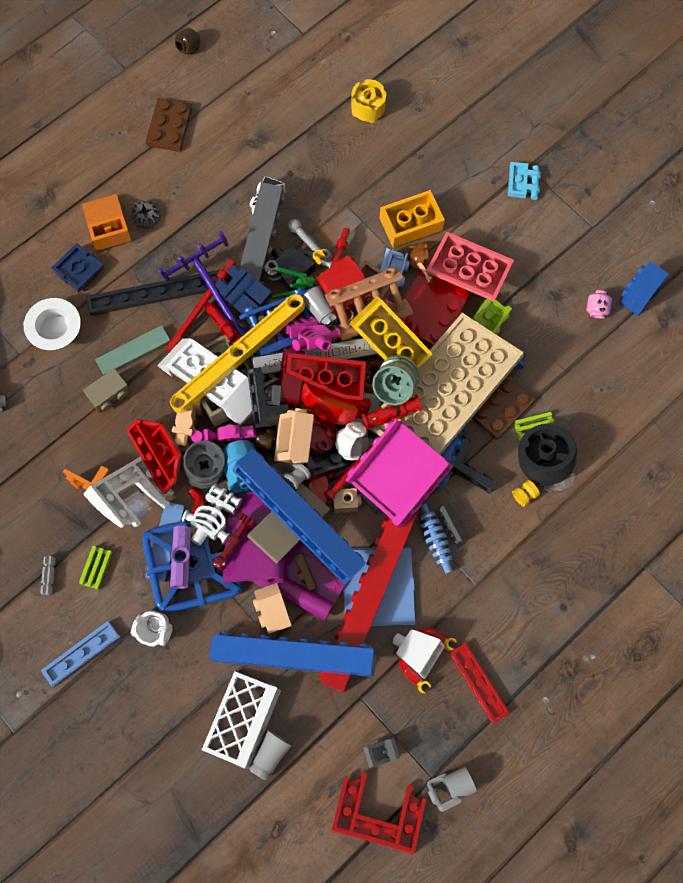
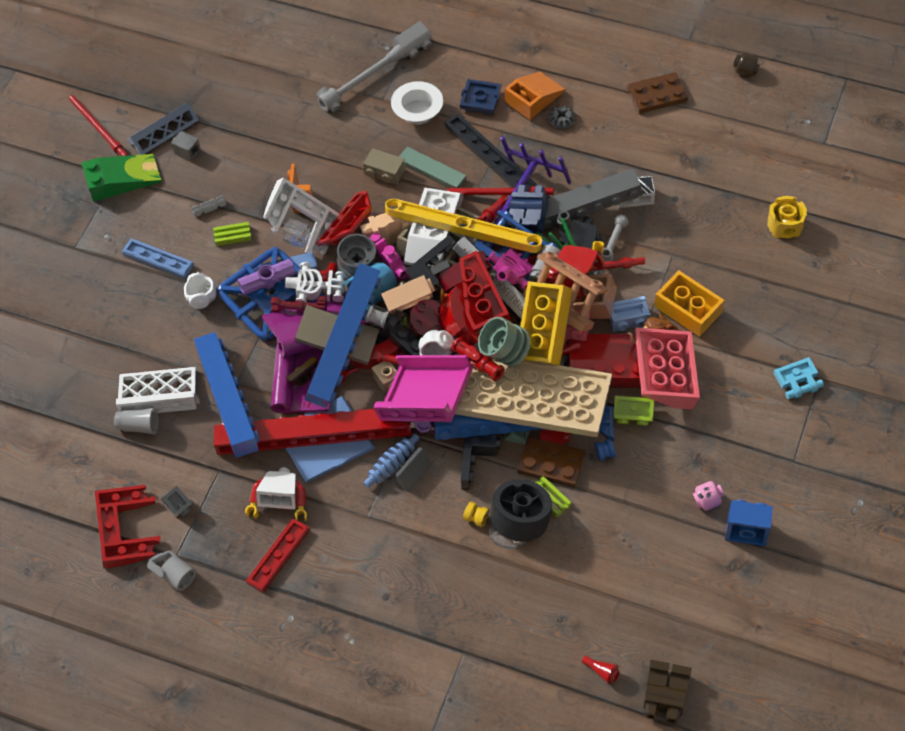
camera: 70 degrees right, 15 degrees down
(272, 608) = (258, 362): light nougat brick -> none

